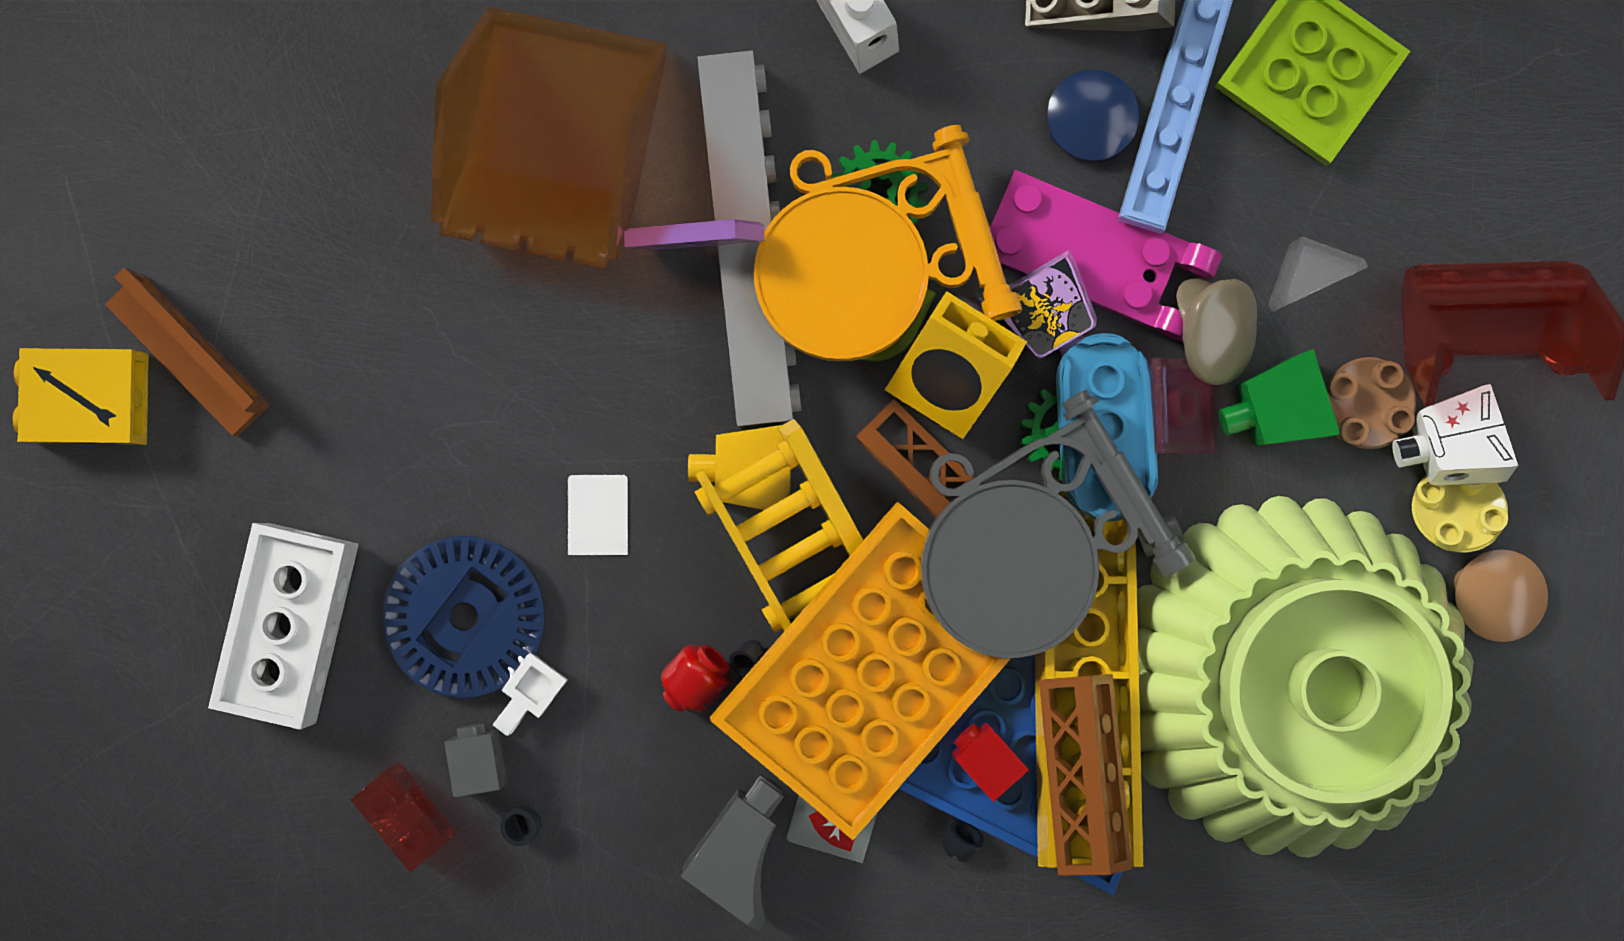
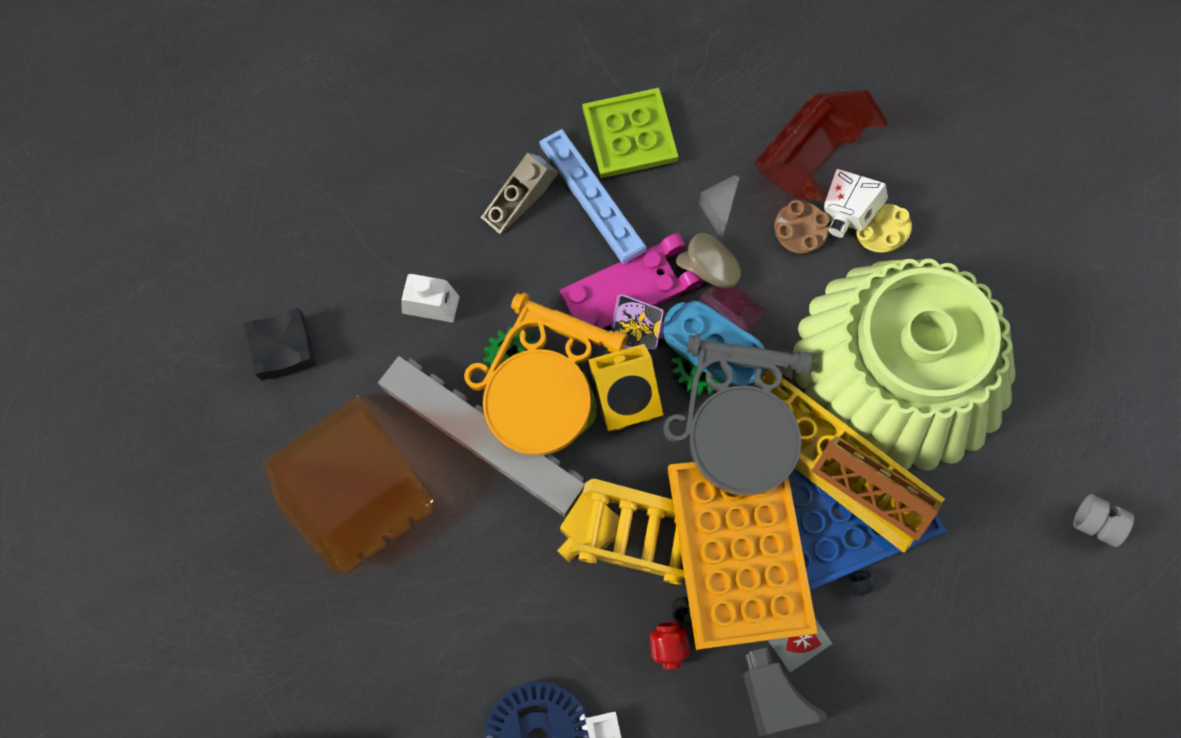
camera: 45 degrees left, 15 degrees down
(597, 515) = (546, 624): white sticker -> none
(694, 234) = (456, 454): medium lavender tile -> none
(903, 469) = (652, 456): dark orange fence -> none
(988, 760) = (830, 531): red brick -> none
(1093, 115) = (566, 238): dark blue dish -> none
(1282, 404) = (770, 262): green torso -> none
(1501, 595) = (939, 240): medium nougat dish -> none

